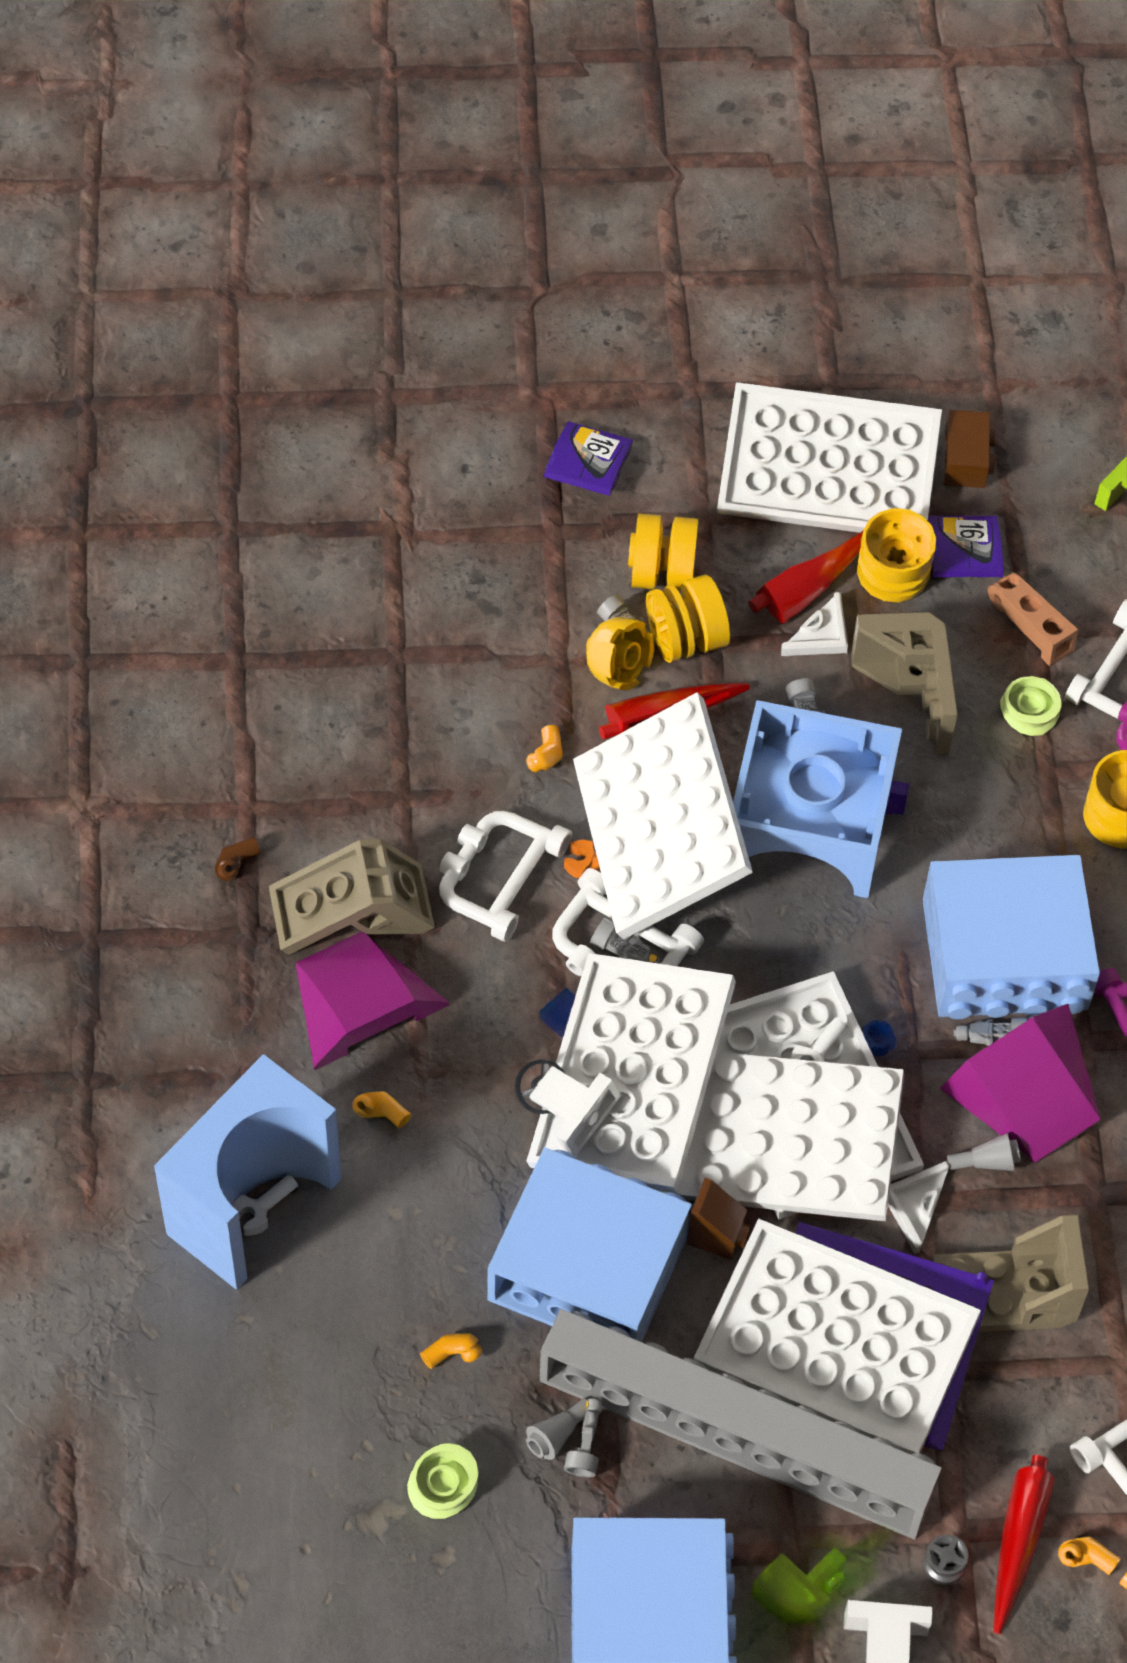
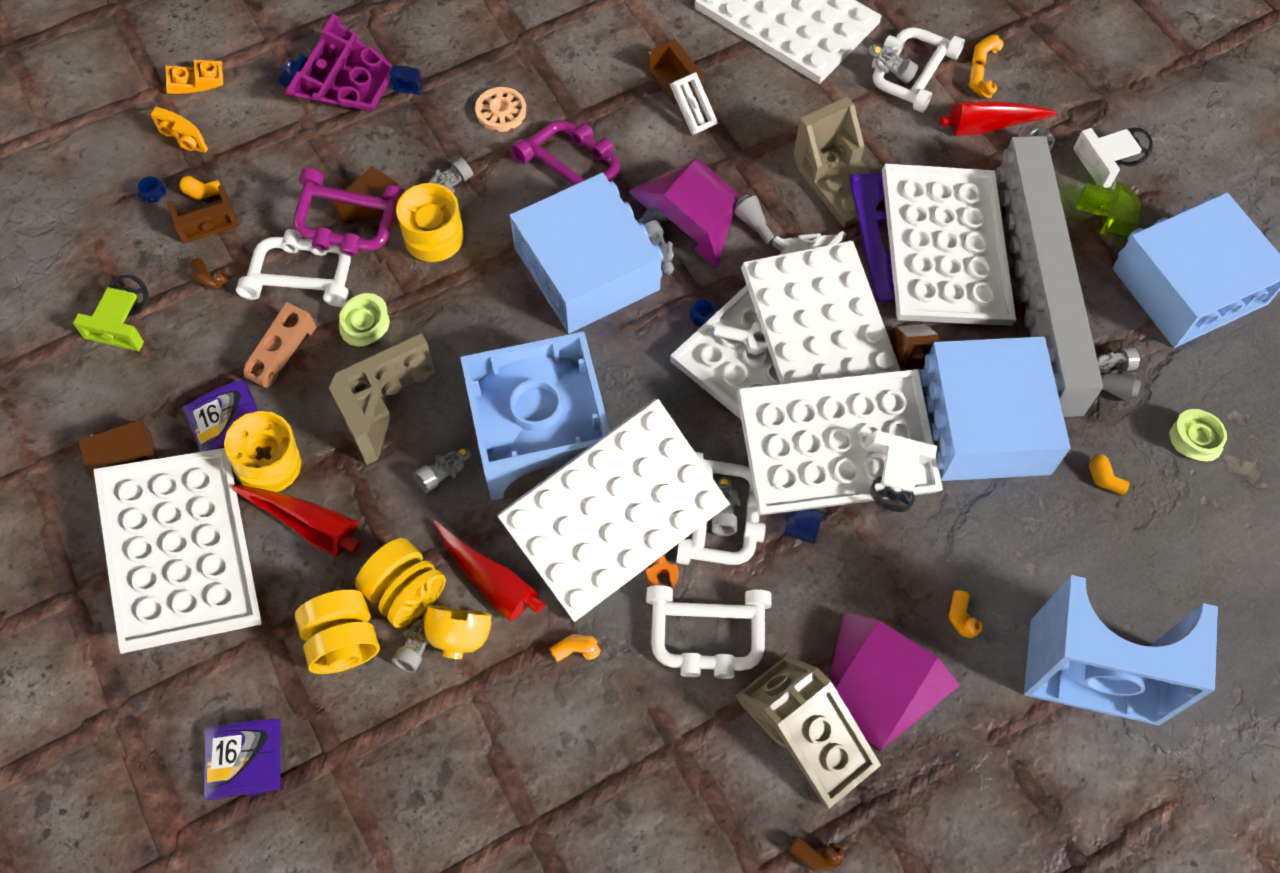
camera: 115 degrees left, 5 degrees up
(821, 632) = (354, 491): white tile -> none

